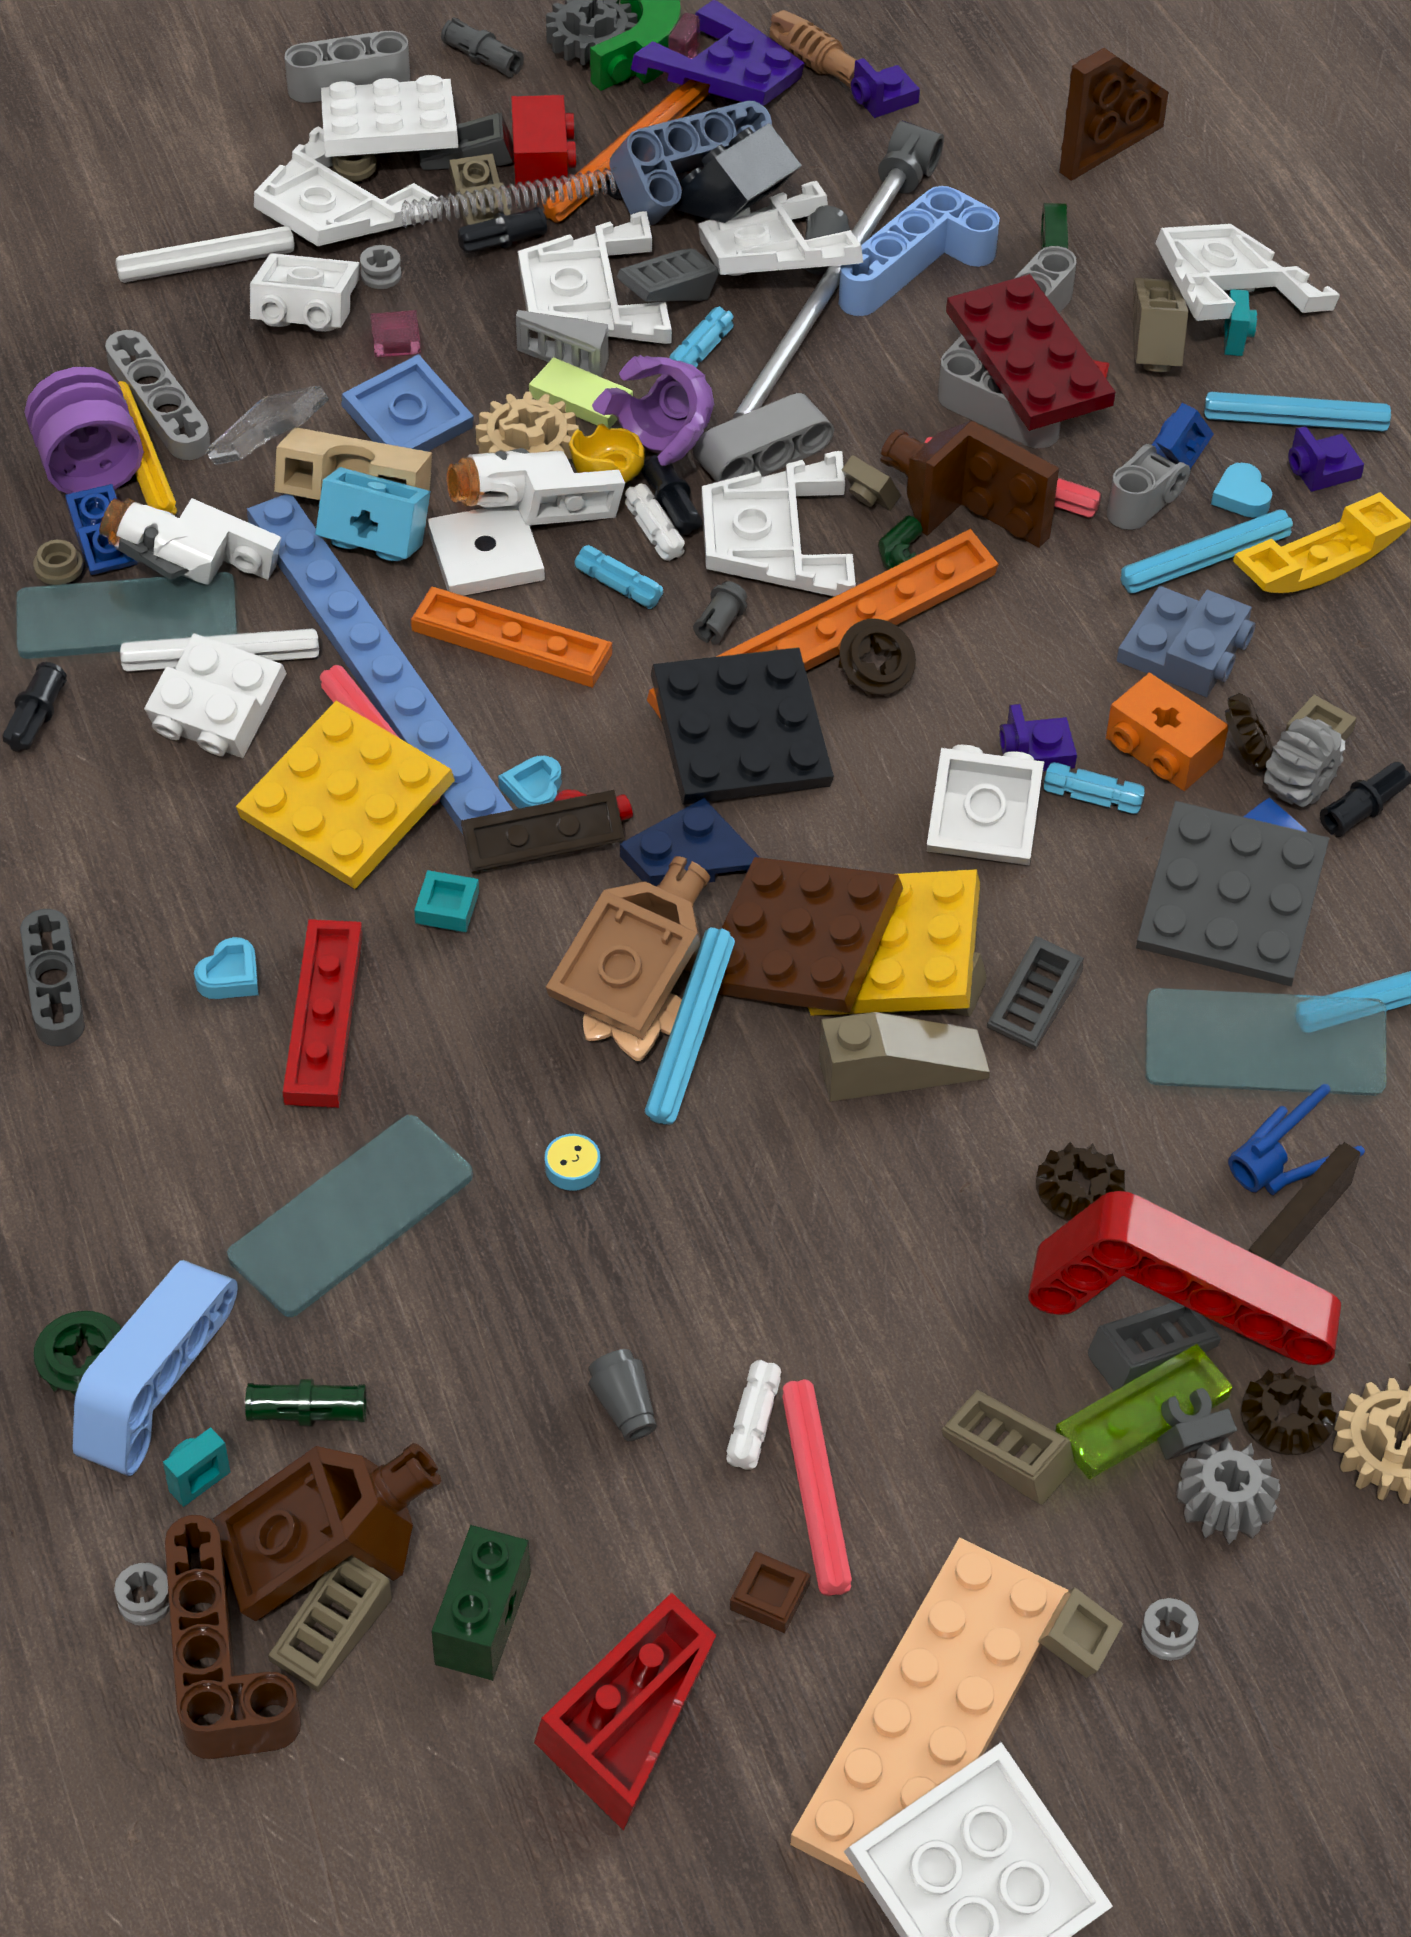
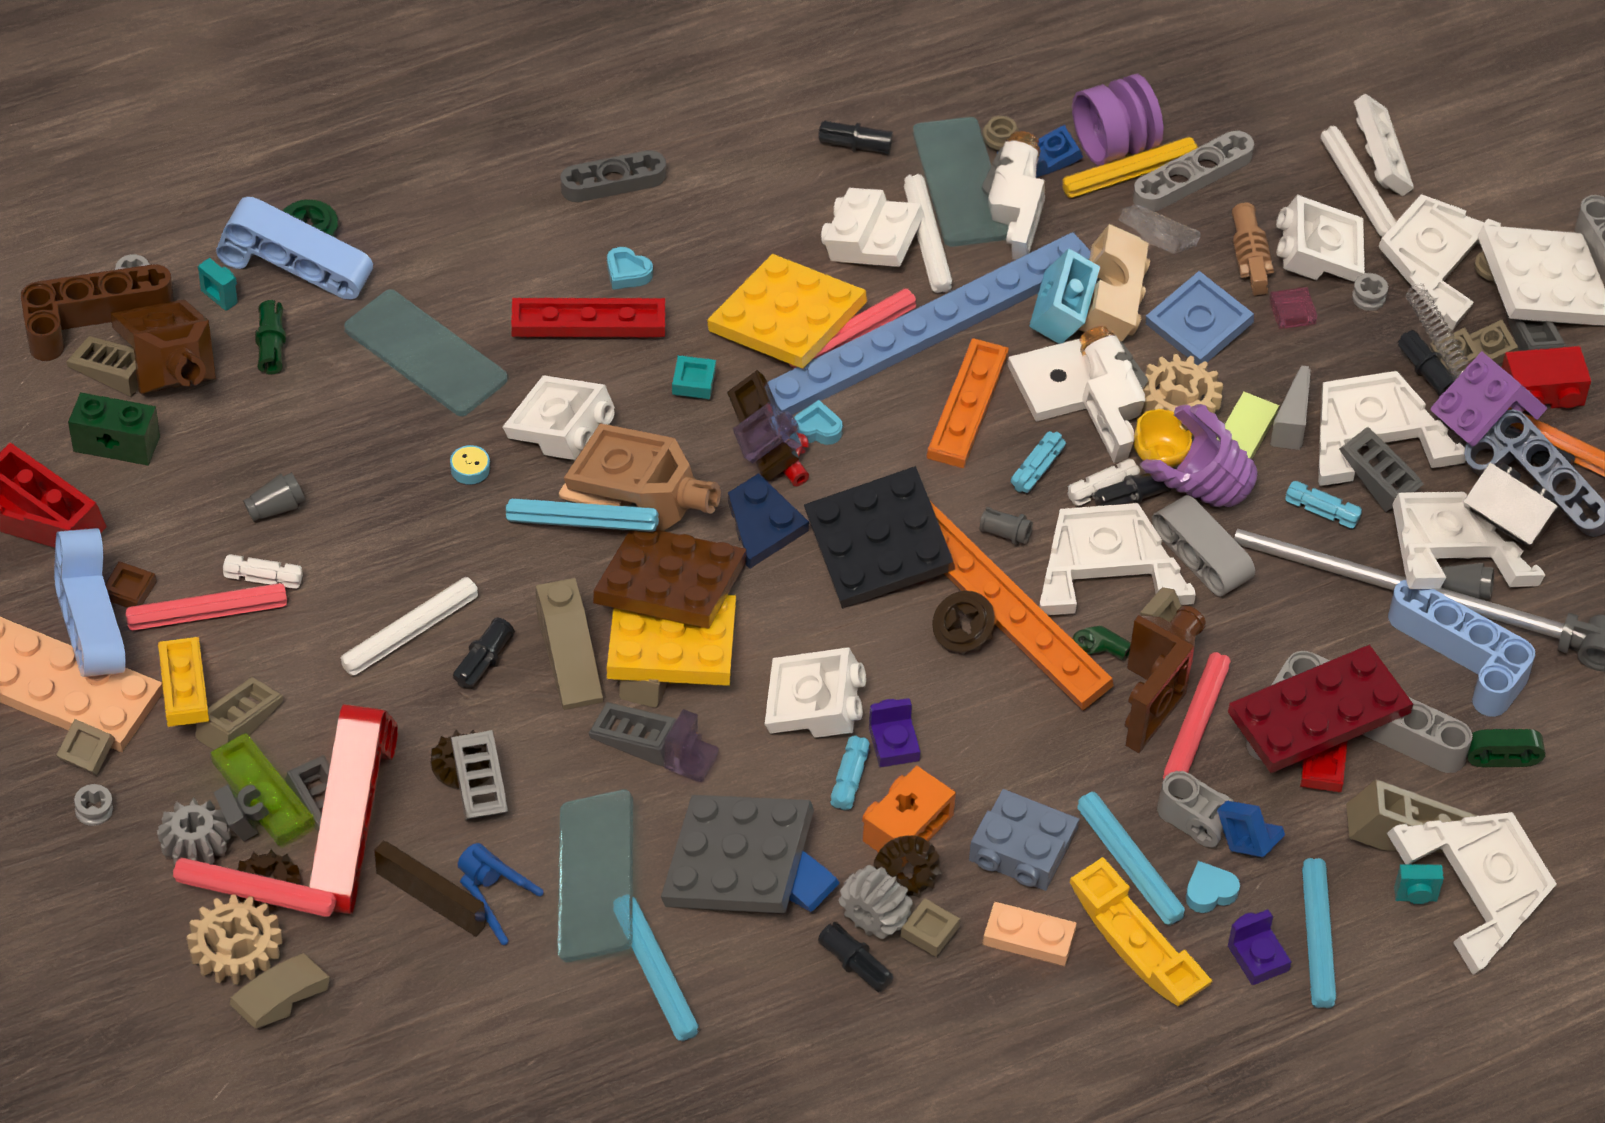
camera: 85 degrees right, 0 degrees up
(154, 224) = (1383, 145): none -> white plate
(303, 353) = (1251, 248): none -> medium nougat hinge
(507, 1044) = (561, 415): none -> white plate
(580, 812) = (765, 431): none -> clear purple bracket
(599, 170) = (1481, 398): none -> medium lavender bracket
(848, 1621) = (87, 603): none -> light blue beam
(858, 1238) = (409, 626): none -> white axle
(907, 1152) = (483, 652): none -> black axle
(968, 1502) = (183, 681): none -> yellow tile
(1075, 929) = (686, 751): none -> bracket
(1153, 1152) = (479, 810): none -> light grey slope
(1314, 647) = (1029, 933): none -> light nougat plate
(1326, 1409) = (259, 887): none -> coral axle

